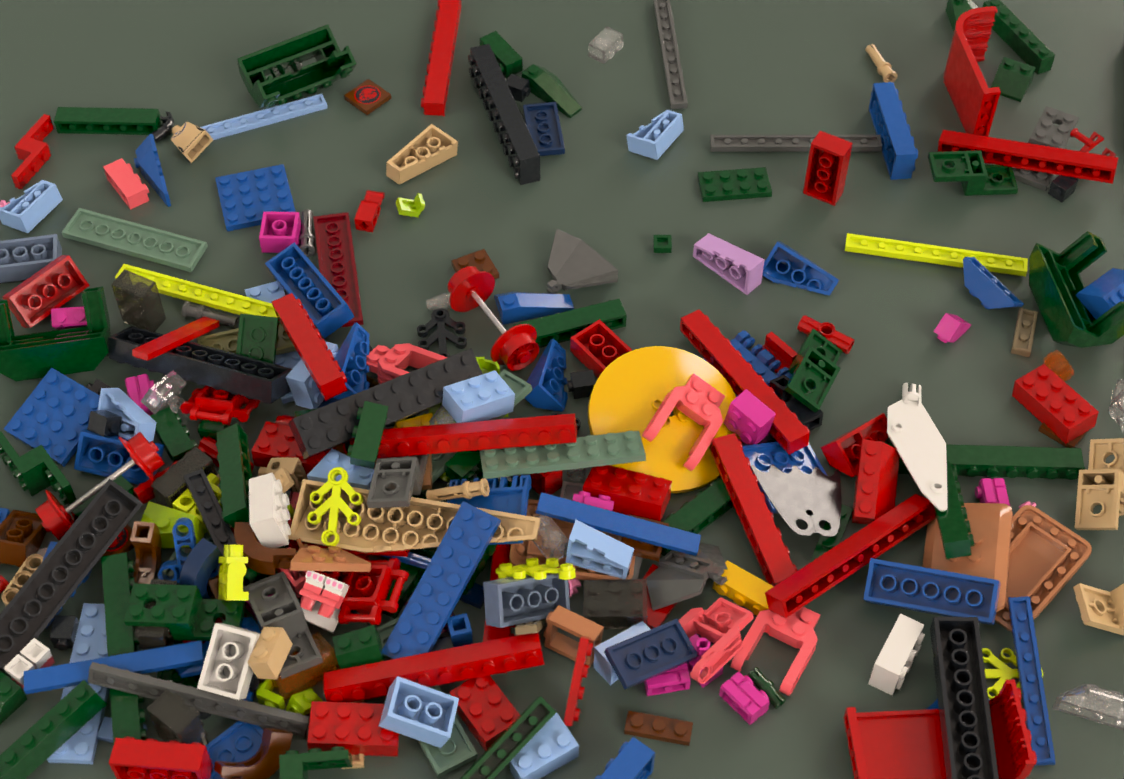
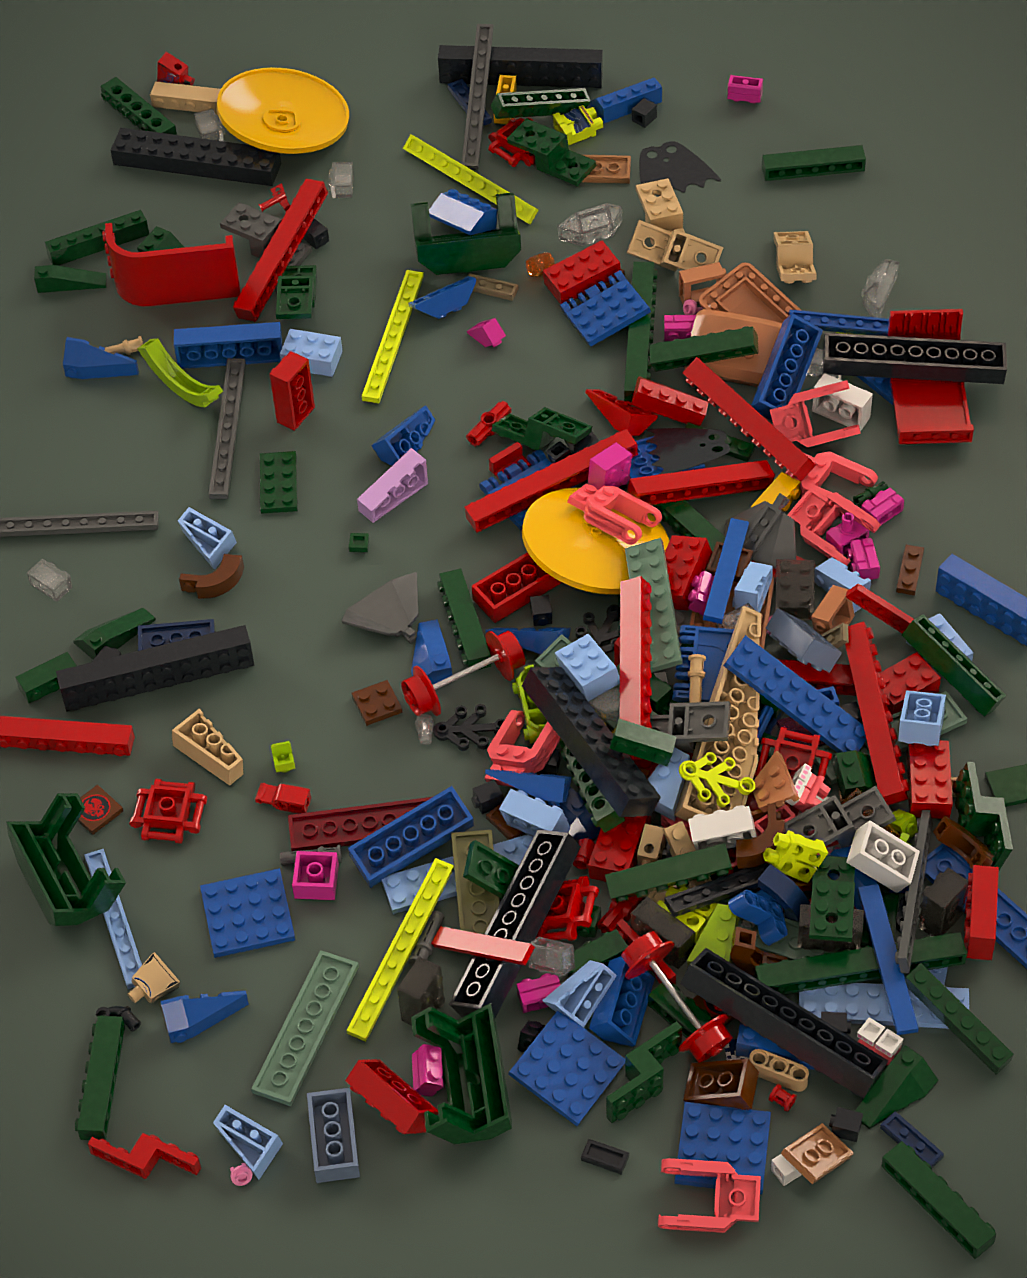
camera: 85 degrees left, 0 degrees up
(104, 423) = (595, 1002): black brick -> none
(126, 183) = (214, 1044): coral brick -> none
(270, 653) = (884, 817): tan brick -> none
(310, 347) = (515, 808): red brick -> none
(358, 137) = (168, 809): none -> red brick
(535, 570) = (777, 650): neon yellow plant -> none
(611, 152) = (217, 582): none -> reddish brown arch
(650, 653) = (858, 553): dark blue plate -> none
(850, 101) = (175, 377): none -> lime arch
(853, 603) = (794, 419): none -> coral plate
(856, 44) = (89, 362): none -> blue wedge
(898, 193) = (319, 348): none -> light blue brick
(919, 445) = (629, 362): white wing -> none
(1003, 428) = (606, 310): none -> blue hinge
(1059, 505) = (697, 275): none -> nougat window

